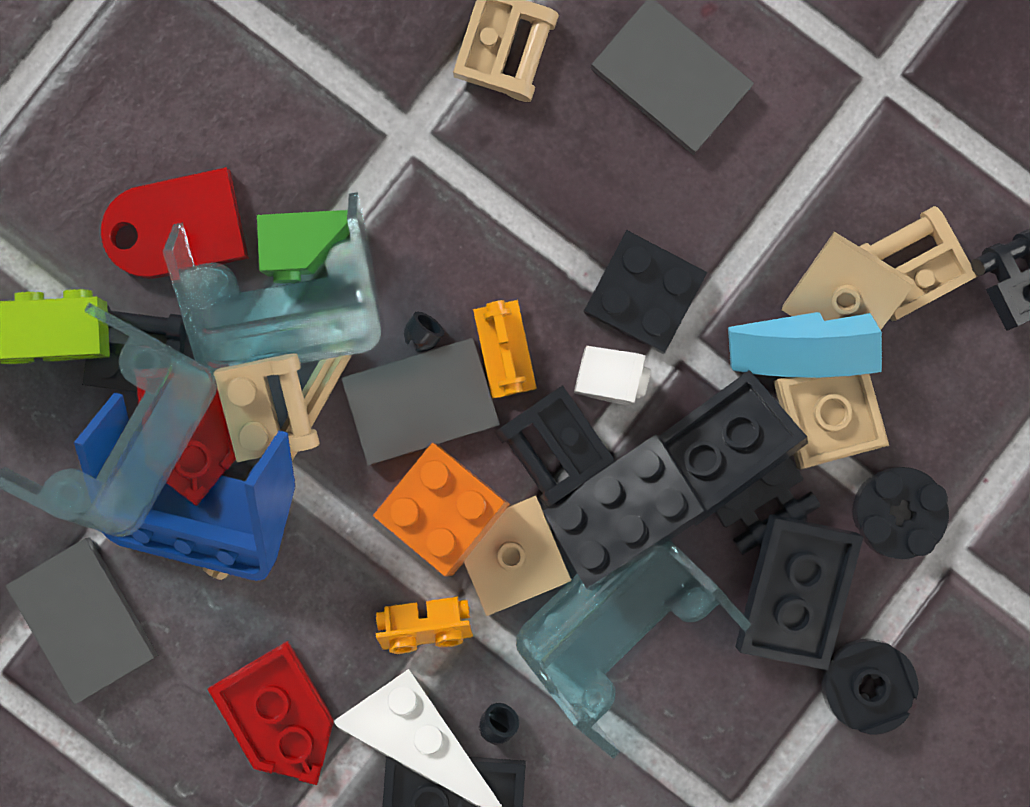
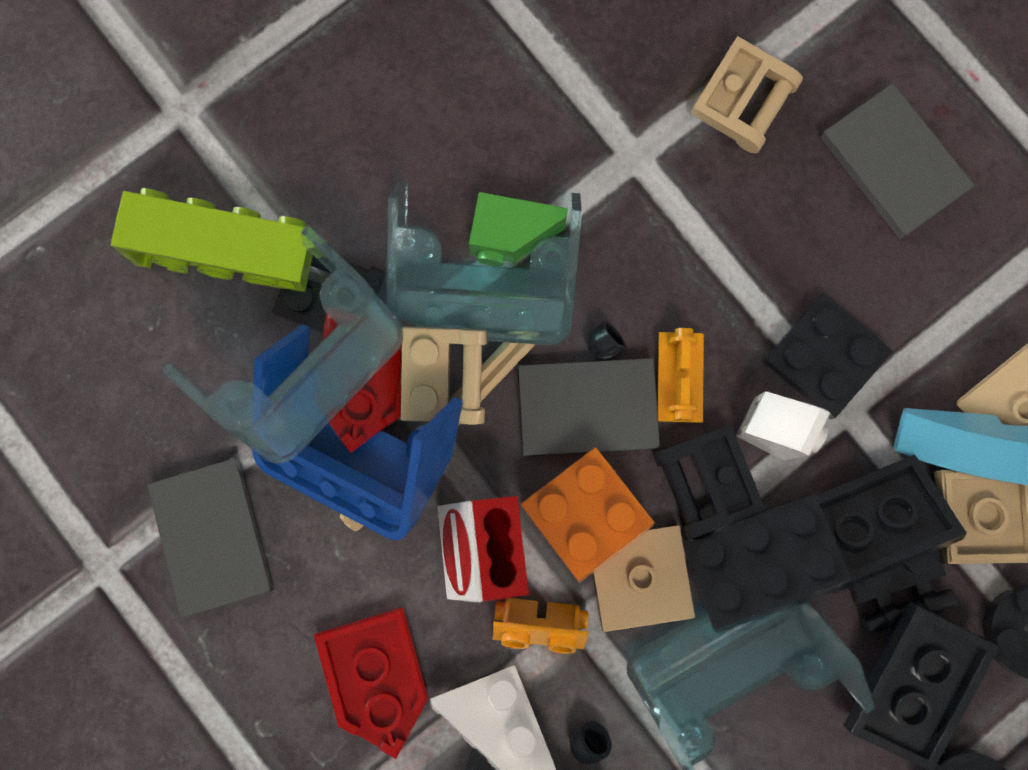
camera: 15 degrees right, 5 degrees down
(199, 201) = (379, 166): red tile -> none
(347, 568) = (483, 549): none -> piece

